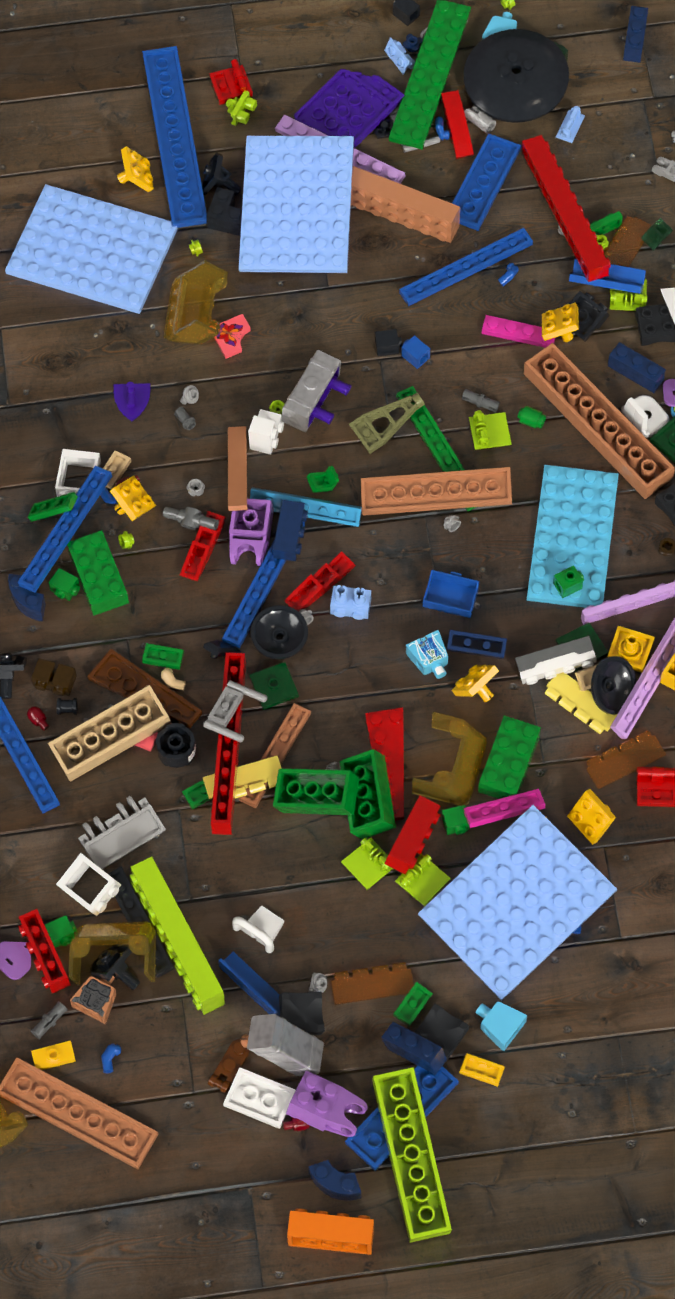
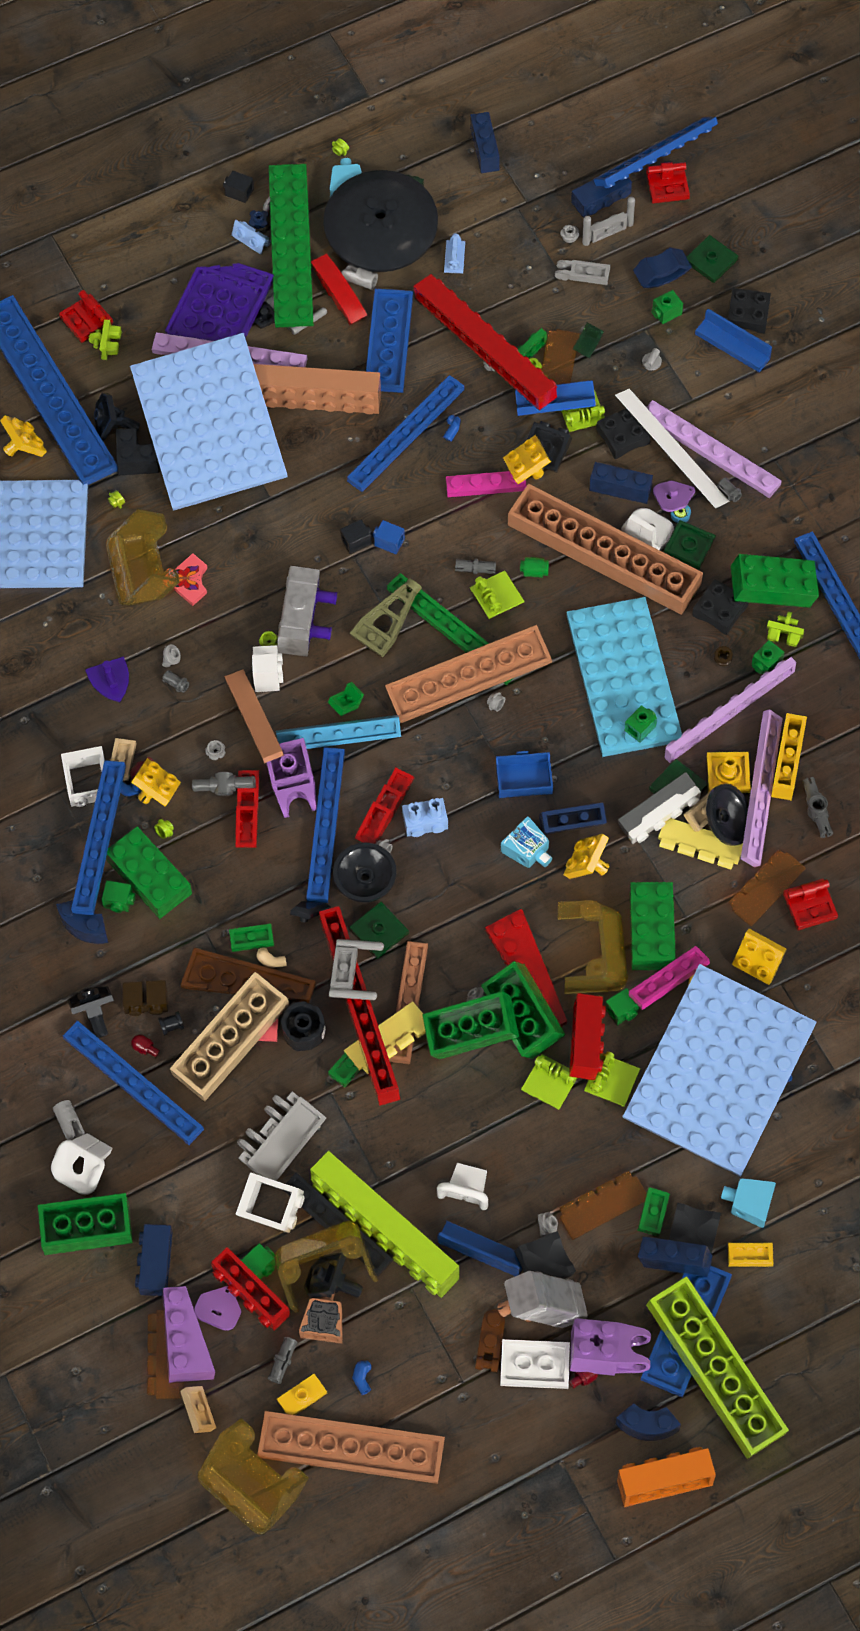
camera: 20 degrees left, 0 degrees up
(52, 507) = (75, 818): green tile -> none
(290, 530) = (334, 763): dark blue brick -> none
(439, 126) = (322, 299): blue arm -> none

